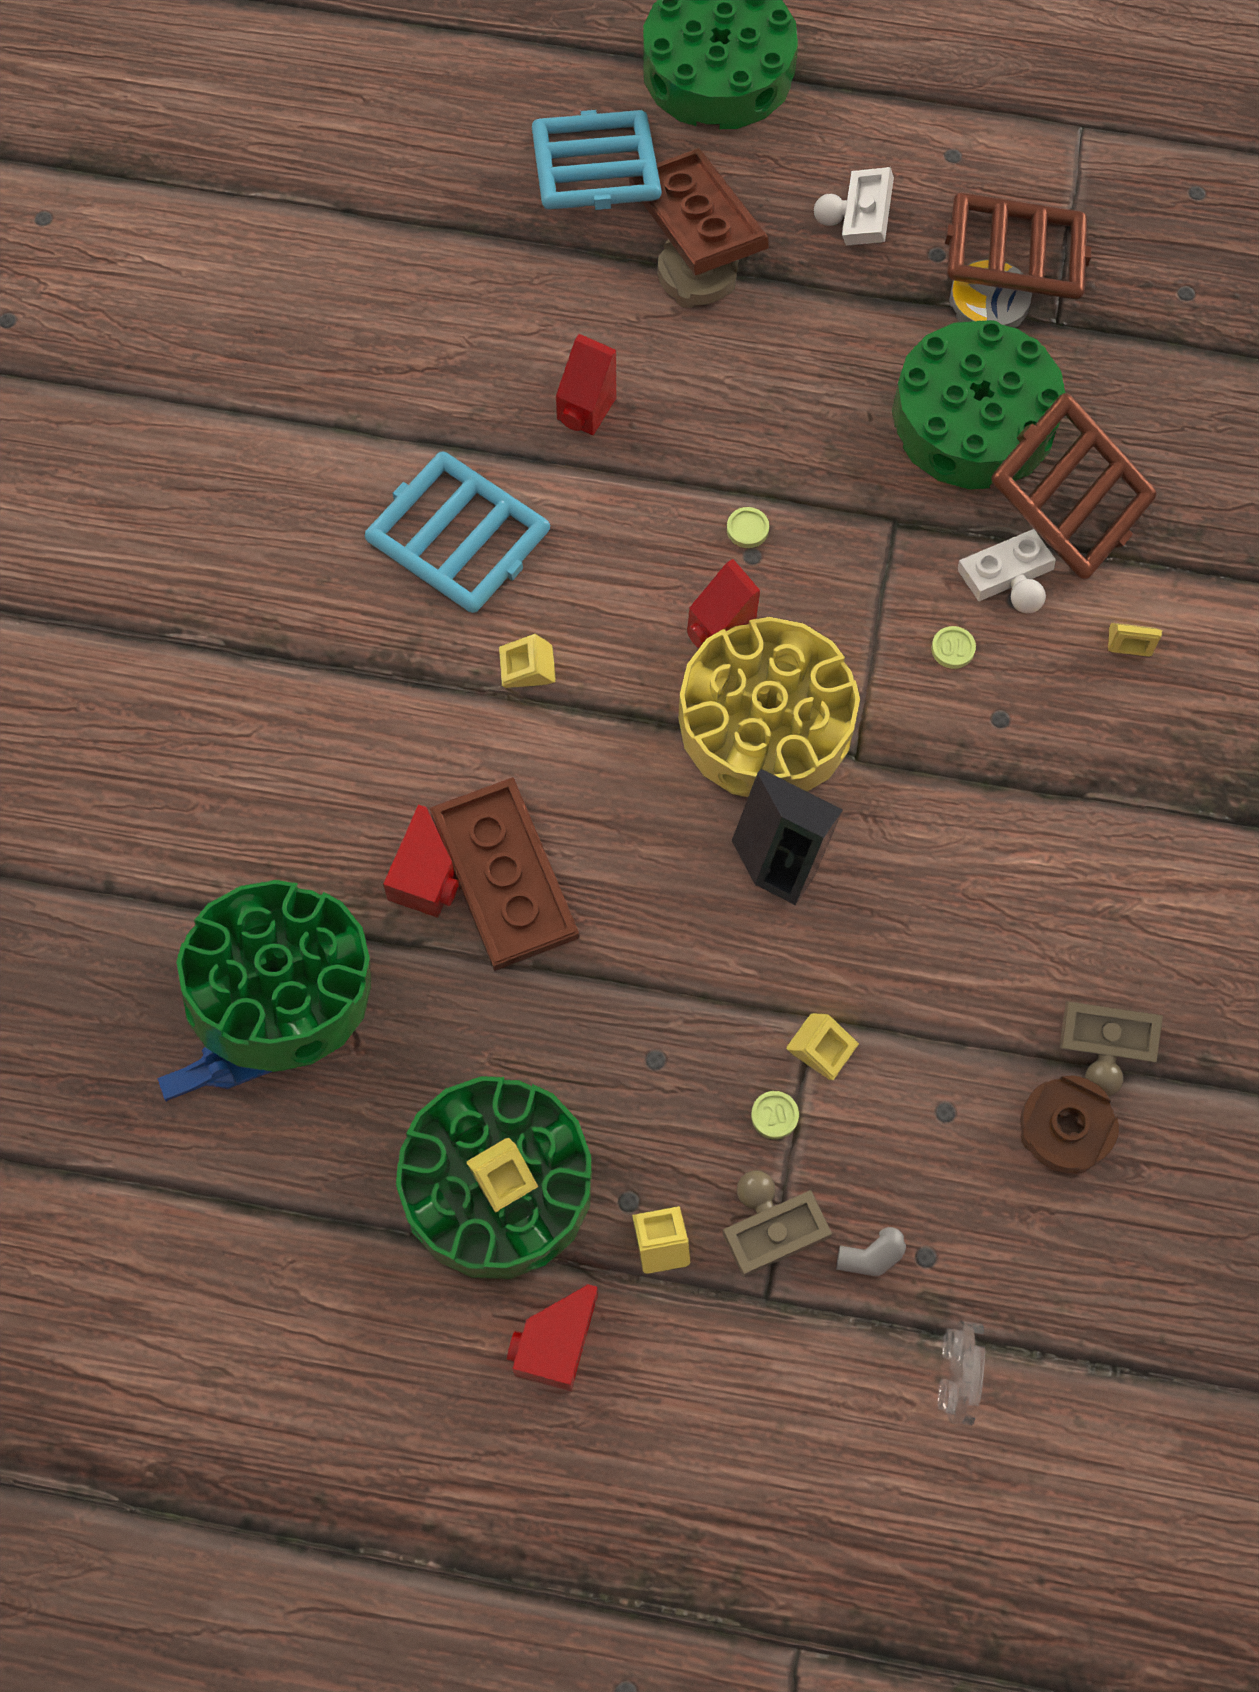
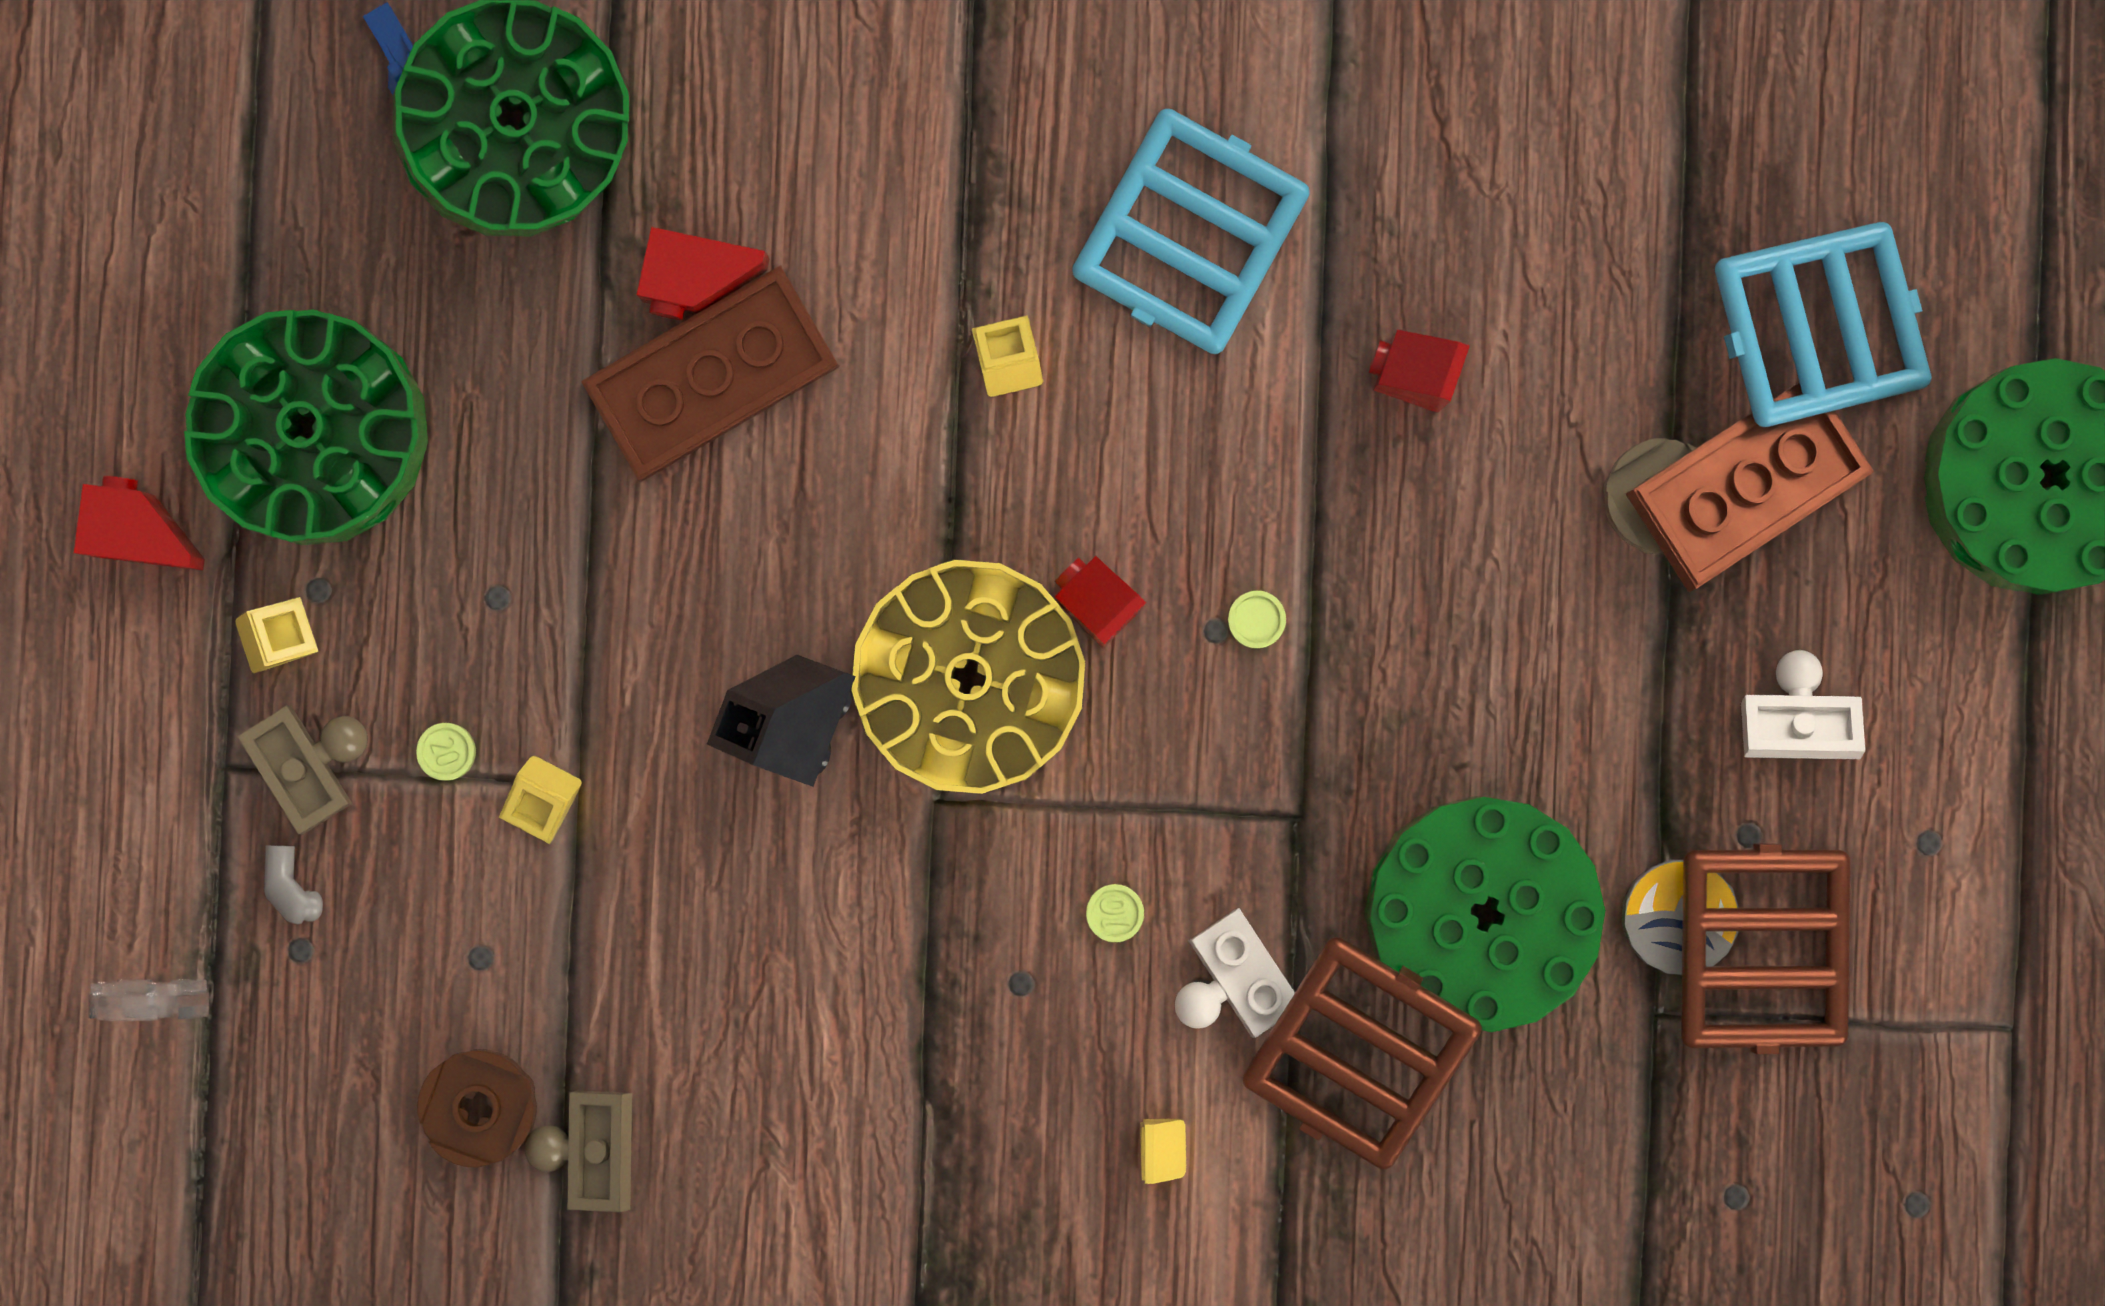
camera: 85 degrees right, 20 degrees up
(502, 1174) = (292, 433): light yellow slope -> none

